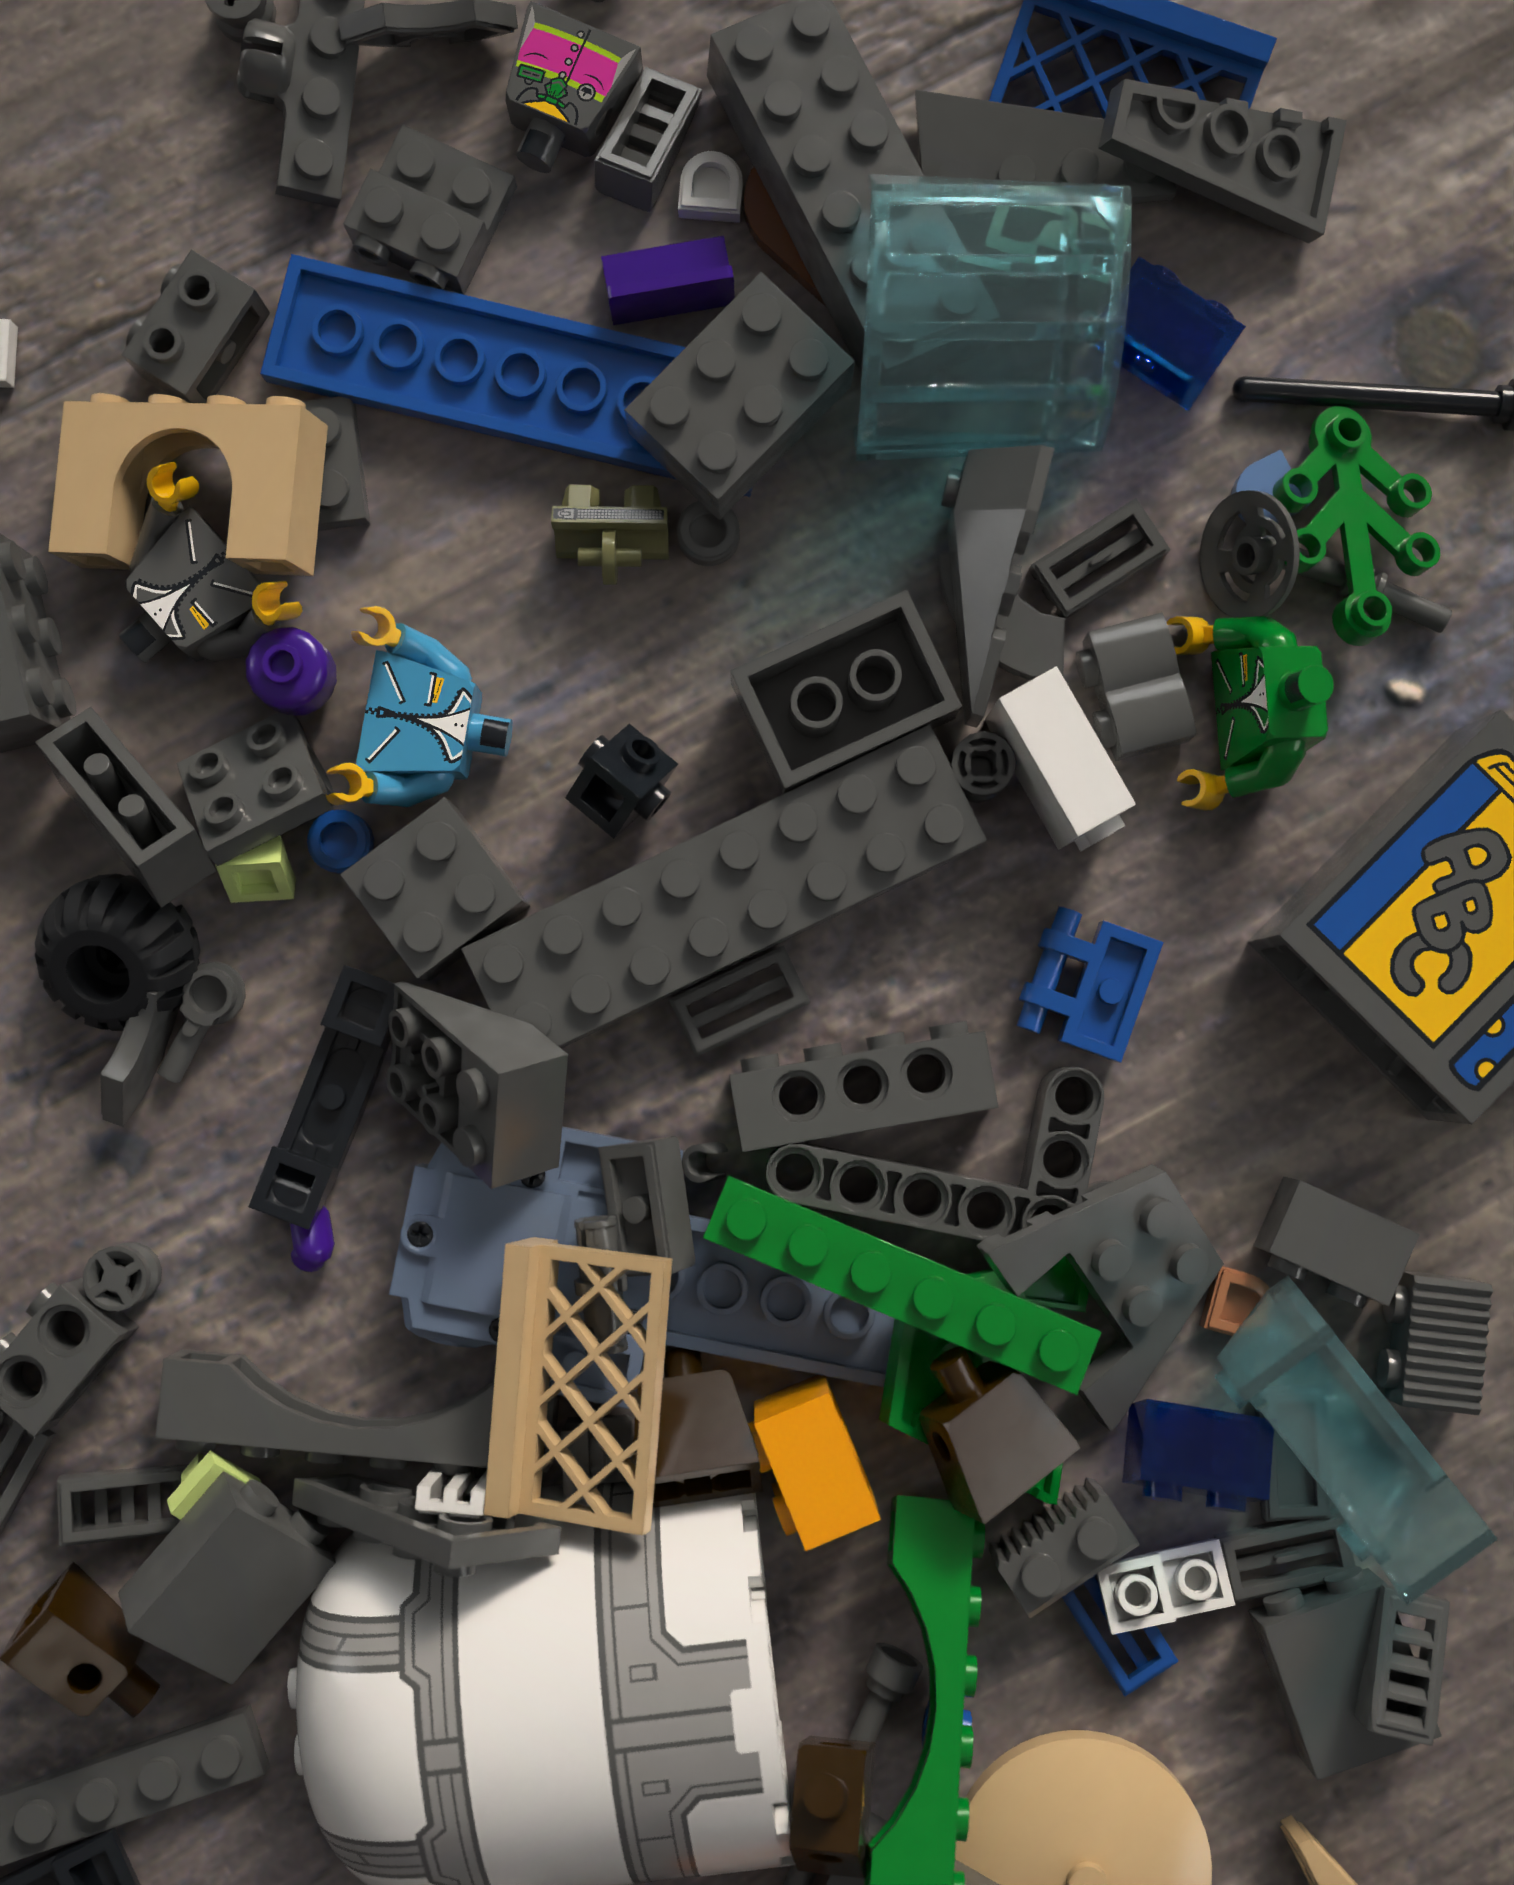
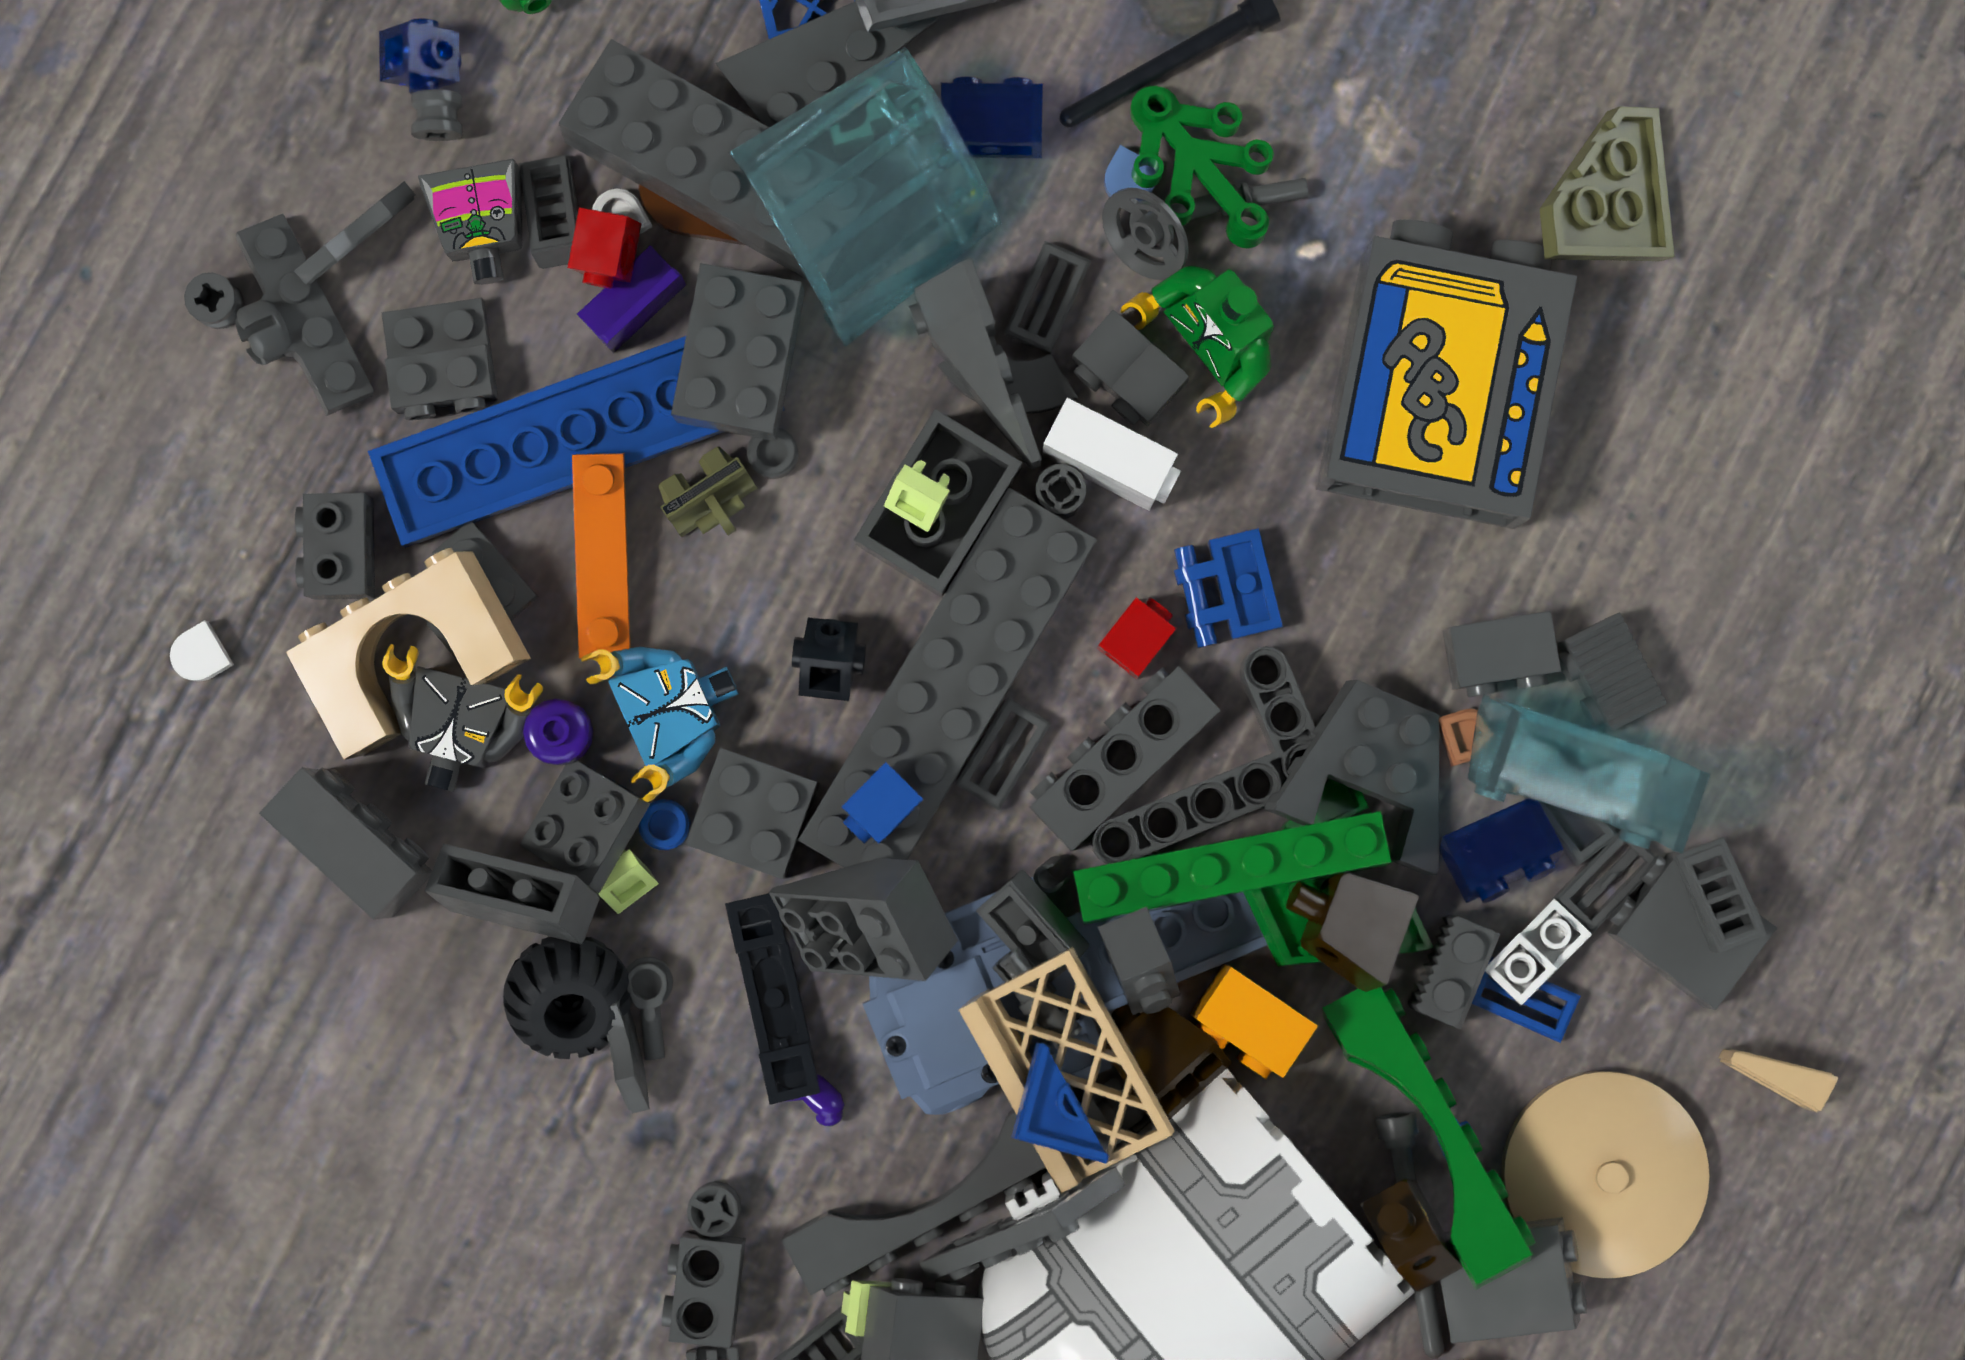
camera: 30 degrees left, 0 degrees up
(462, 514) = (601, 552): none -> orange plate
(530, 1425) = (1052, 1114): none -> blue tile
(569, 968) = (880, 805): none -> blue brick
(673, 199) = (604, 247): none -> red brick
(735, 1321) = (1140, 962): none -> dark grey brick
(827, 666) = (917, 496): none -> yellowish green tile
(961, 971) = (1137, 636): none -> red brick

